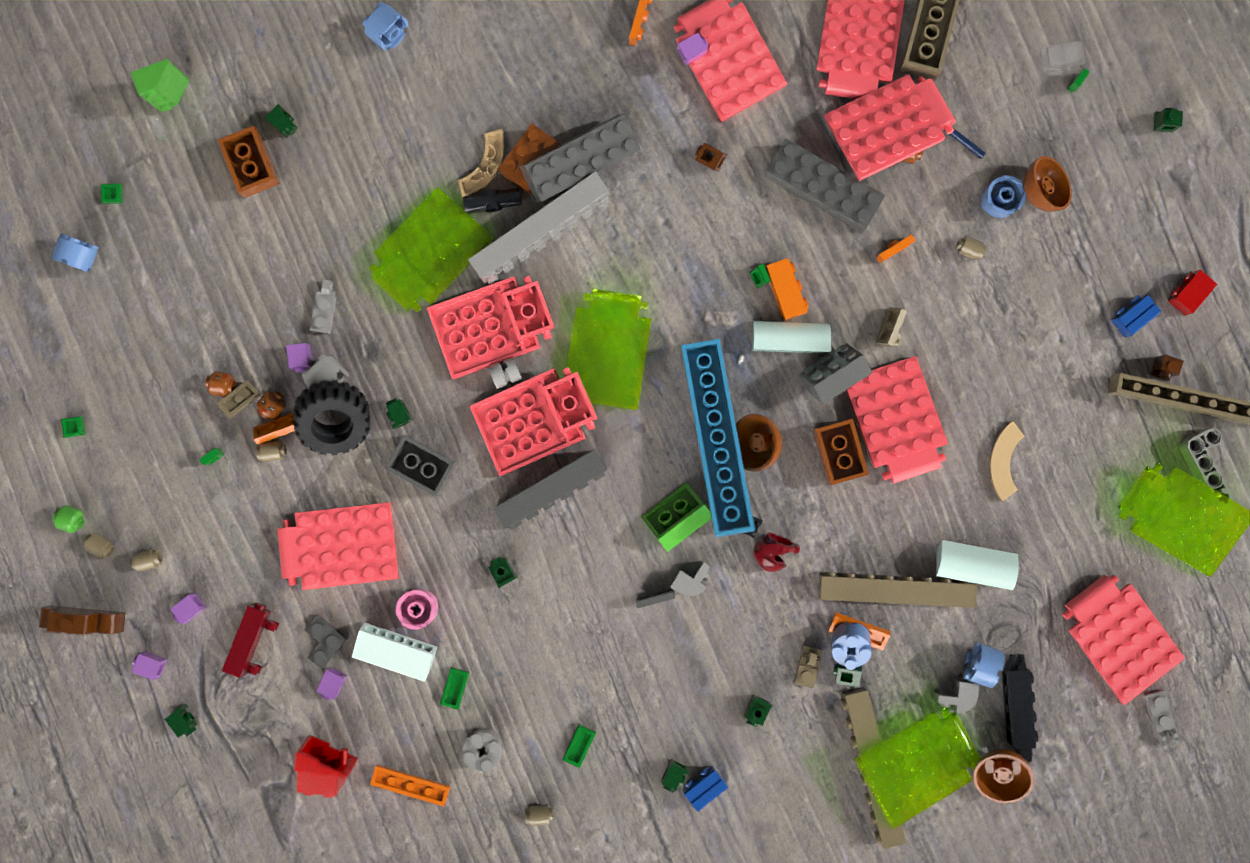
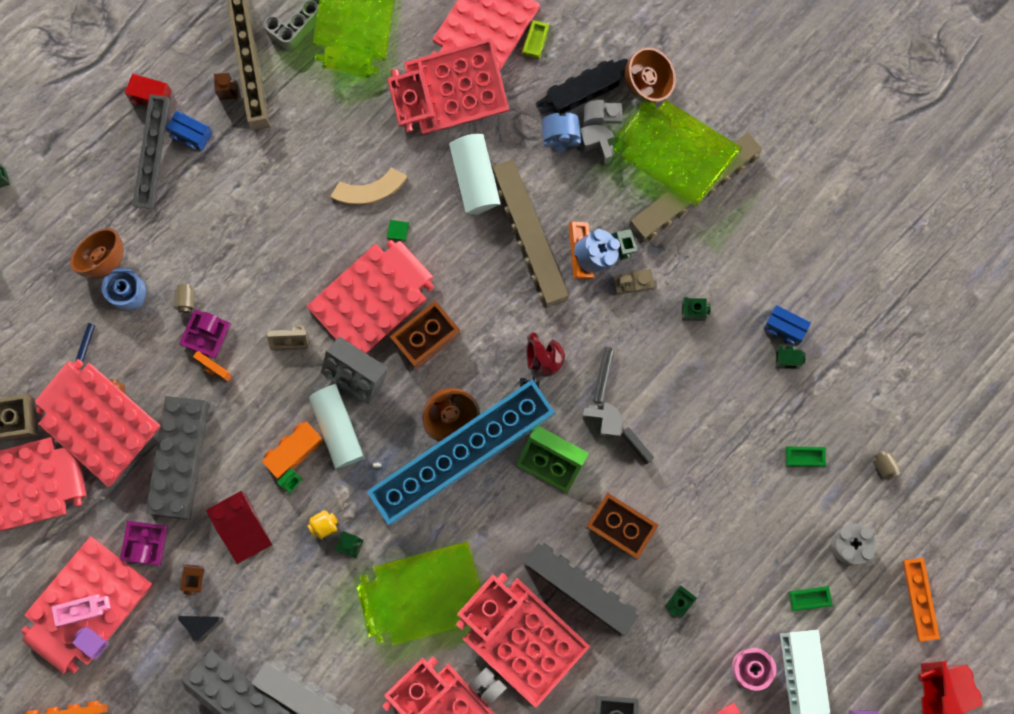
camera: 110 degrees left, 10 degrees down
(589, 551) = (621, 526): none -> dark orange brick
(666, 148) = (200, 626): none -> black slope
(680, 305) = (349, 544): none -> dark green brick
(707, 289) = (323, 525): none -> yellow head
(724, 50) = (80, 610): none -> bright pink hinge
(733, 598) = (603, 375): none -> dark grey axle
(738, 215) = (239, 527): none -> dark red slope
(760, 127) = (143, 543): none -> magenta plate
(929, 254) = (205, 333): none -> magenta plate
(952, 470) = (398, 230): none -> green tile
(986, 711) = (598, 112): none -> light grey brick
(1073, 578) = (449, 88): none -> coral plate
(1088, 684) = (535, 39): none -> lime tile
(1129, 272) = (151, 151): none -> dark grey plate

